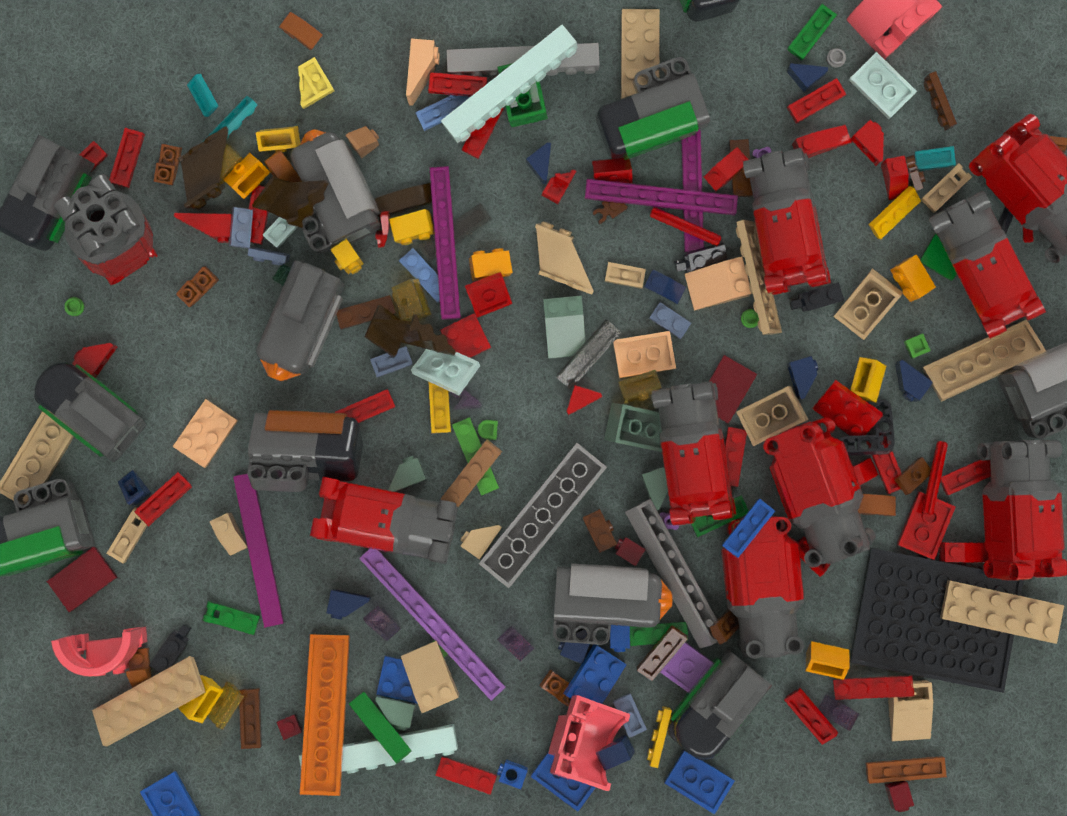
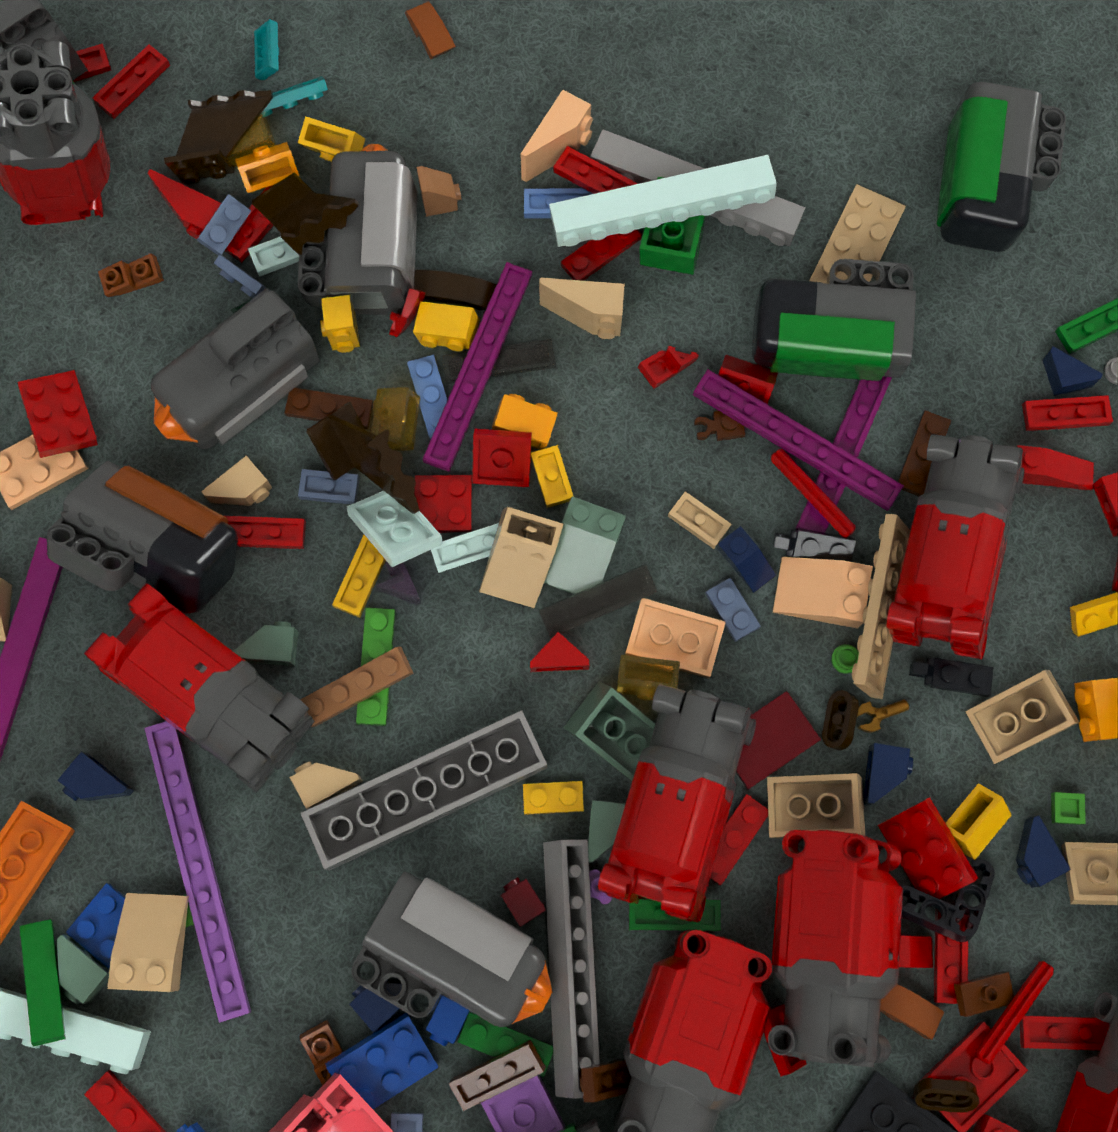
camera: 25 degrees right, 10 degrees down
(168, 164) = (174, 117): dark orange slope -> none
(202, 396) = (57, 413): none -> red plate
(281, 167) = (315, 172): dark orange slope -> none
(313, 83) = (412, 97): light yellow wing -> none
(338, 387) = (239, 485): none -> tan slope
(382, 623) = (126, 833): clear purple slope -> none
(488, 429) = (412, 638): bright green tile -> none
(496, 172) = (587, 304): none -> tan slope
(499, 355) = (464, 548): none -> light aqua plate
(515, 643) = (295, 954): clear purple slope -> none
(523, 290) = (552, 476): none -> yellow plate
(530, 350) = (520, 557): none -> tan slope
(540, 162) = (656, 321): dark blue slope -> none
(559, 258) = (621, 454): tan piece -> none
(600, 530) = (494, 851): reddish brown brick -> none
(617, 483) = (553, 797): none -> yellow plate
(726, 169) = (901, 442): red slope -> none
(748, 528) = (705, 945): blue plate -> none
(763, 357) = (839, 720): none -> dark brown plate
(784, 342) = (880, 713): none -> pearl gold bar
(916, 542) = (946, 1095): none -> dark brown plate

